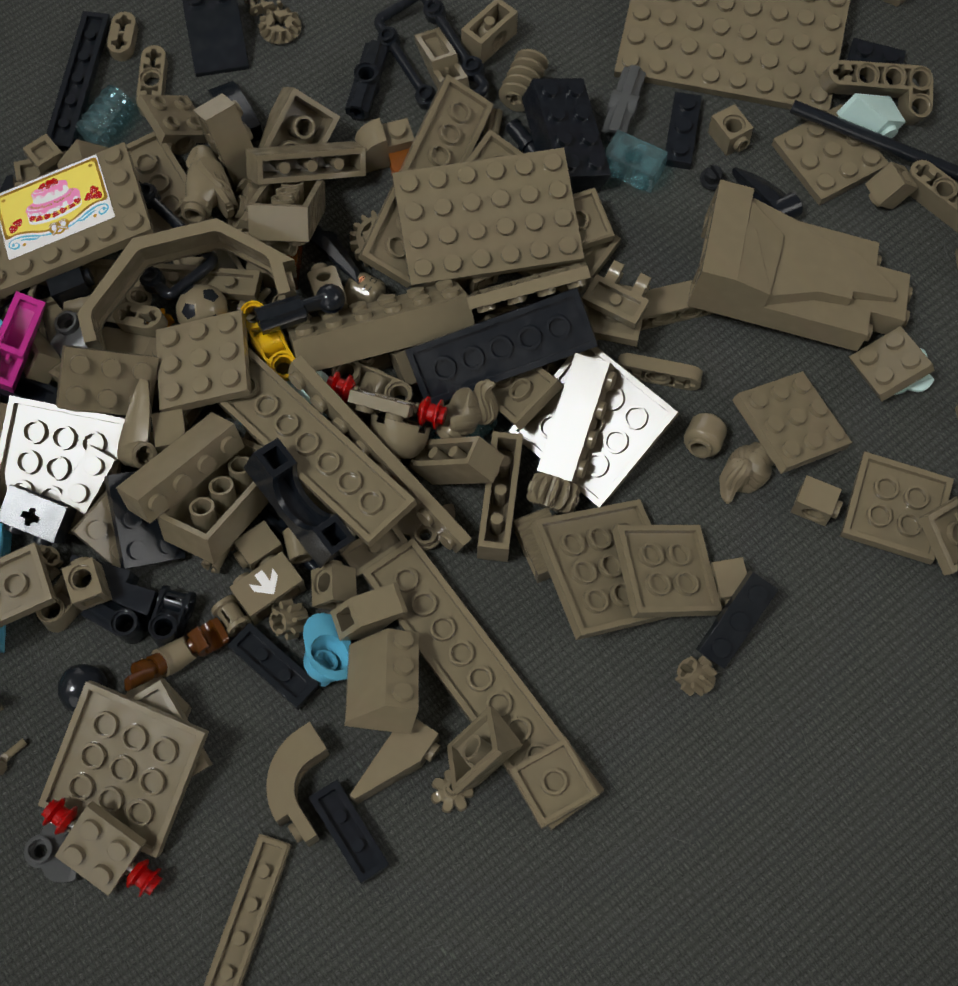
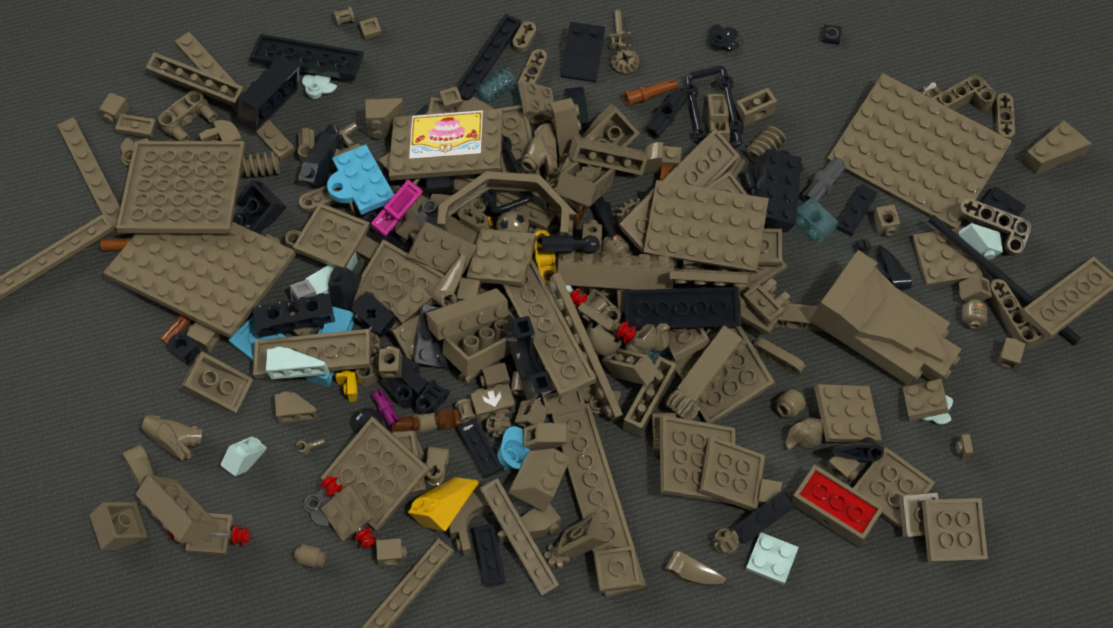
camera: 20 degrees right, 5 degrees down
(35, 637) = (350, 384): none -> yellow bracket
(64, 942) = (310, 556): none -> dark tan brick
(104, 654) = (385, 407): none -> magenta pin
(191, 886) = (390, 552): none -> dark tan brick
(214, 713) = (437, 461): none -> dark tan piece
(247, 776) = (441, 504): none -> yellow slope
(323, 62) = (642, 94): none -> dark orange pin
(385, 787) = (519, 536): none -> dark tan tile
(659, 739) = (685, 567): none -> dark tan piece
(770, 677) = (772, 558): none -> light aqua plate
(835, 563) = (837, 505): none -> brick
(839, 467) = (865, 450): none -> black piece
(903, 220) = (974, 314): none -> dark tan head

